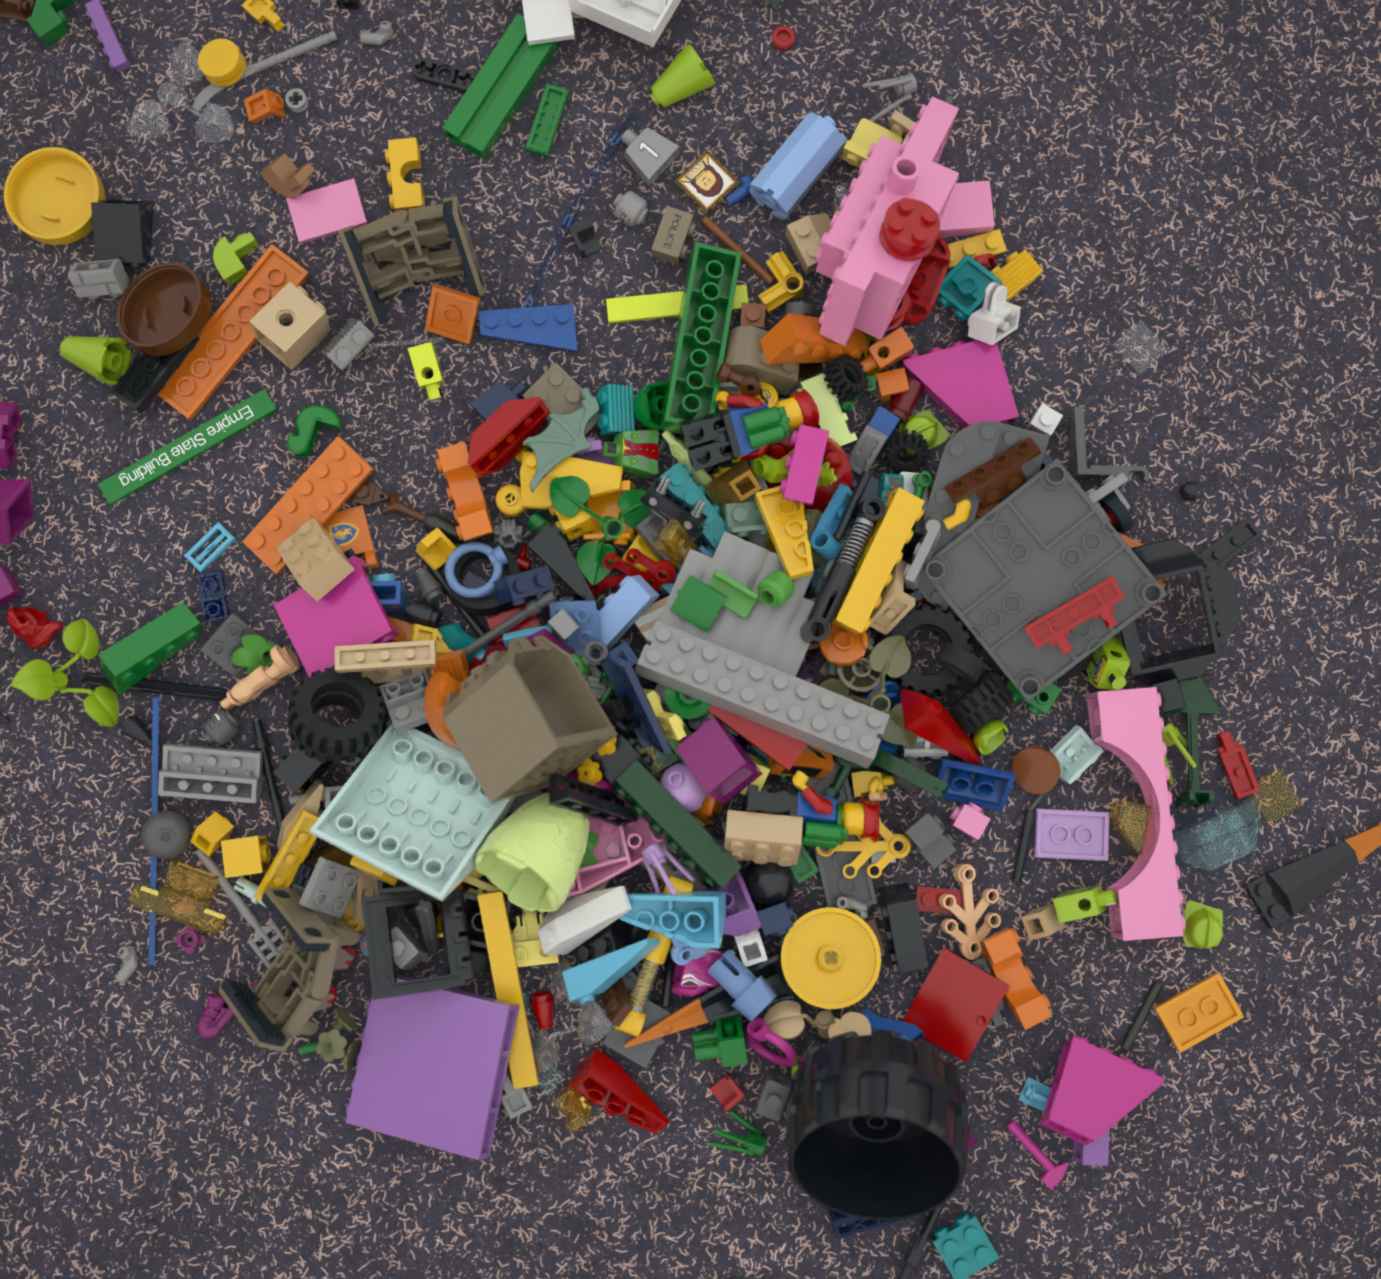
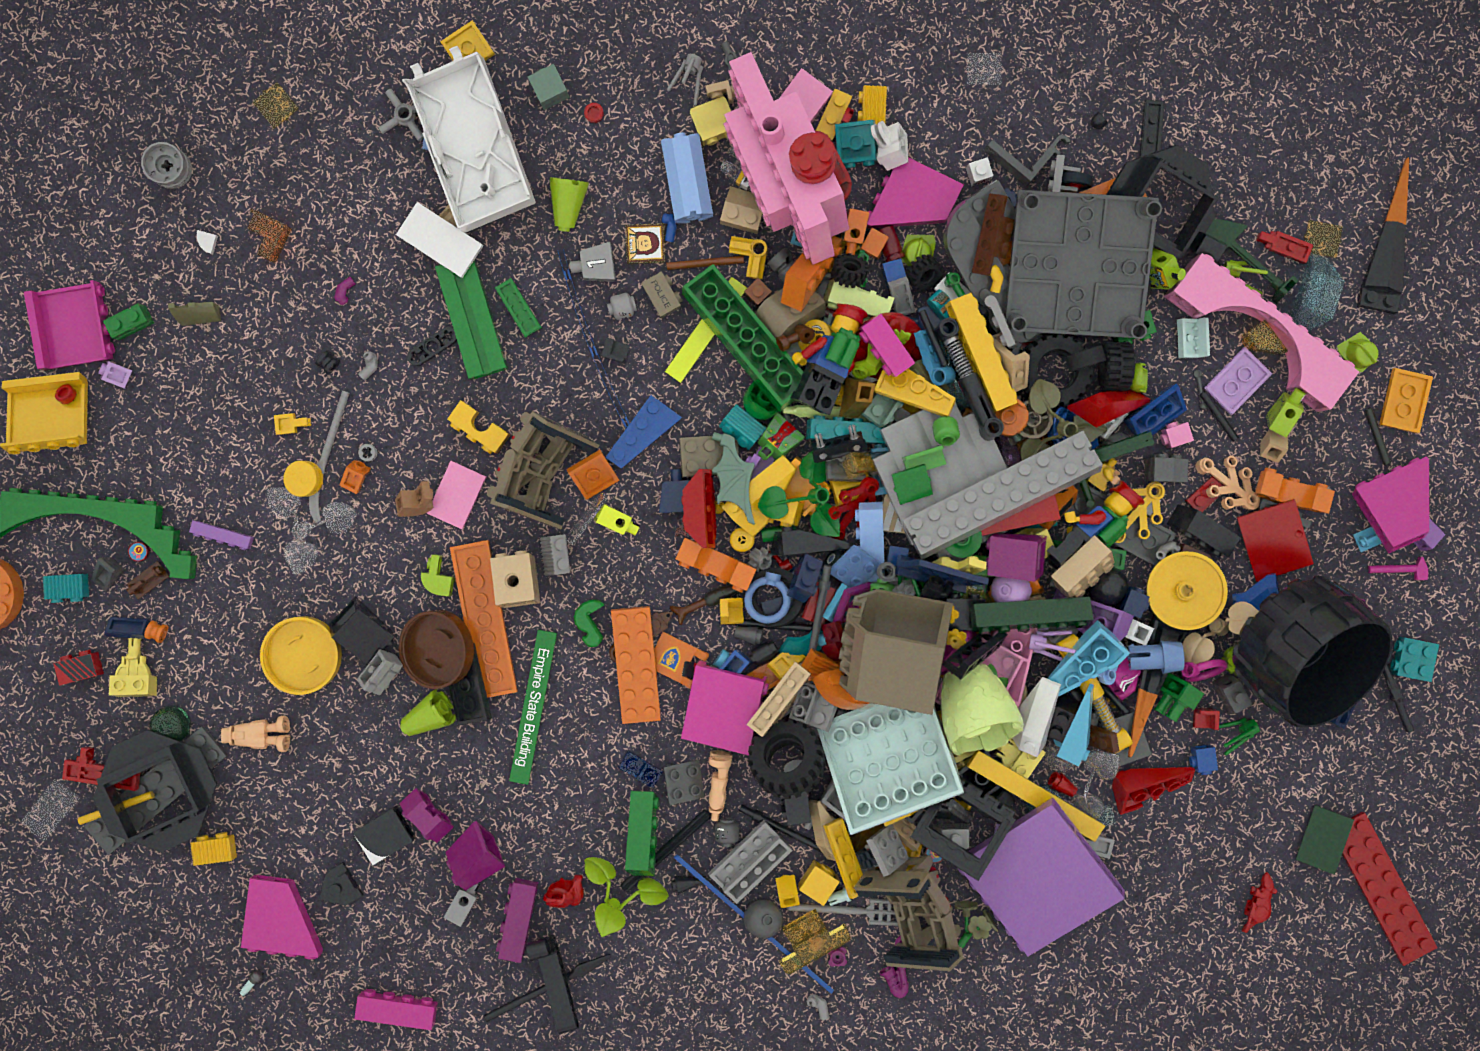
camera: 45 degrees left, 5 degrees up
(225, 533) = (600, 745): medium azure tile -> none
(252, 653) = (700, 774): bright green plate -> none
(315, 559) = (677, 690): tan brick -> none
(562, 624) = (850, 576): light grey slope -> none
(575, 1107) = (1137, 814): clear yellow panel -> none
(686, 1125) = (1203, 759): none -> blue brick
(1036, 769) = (1183, 368): dark orange tile -> none
(1092, 603) = (1116, 280): red hinge -> none

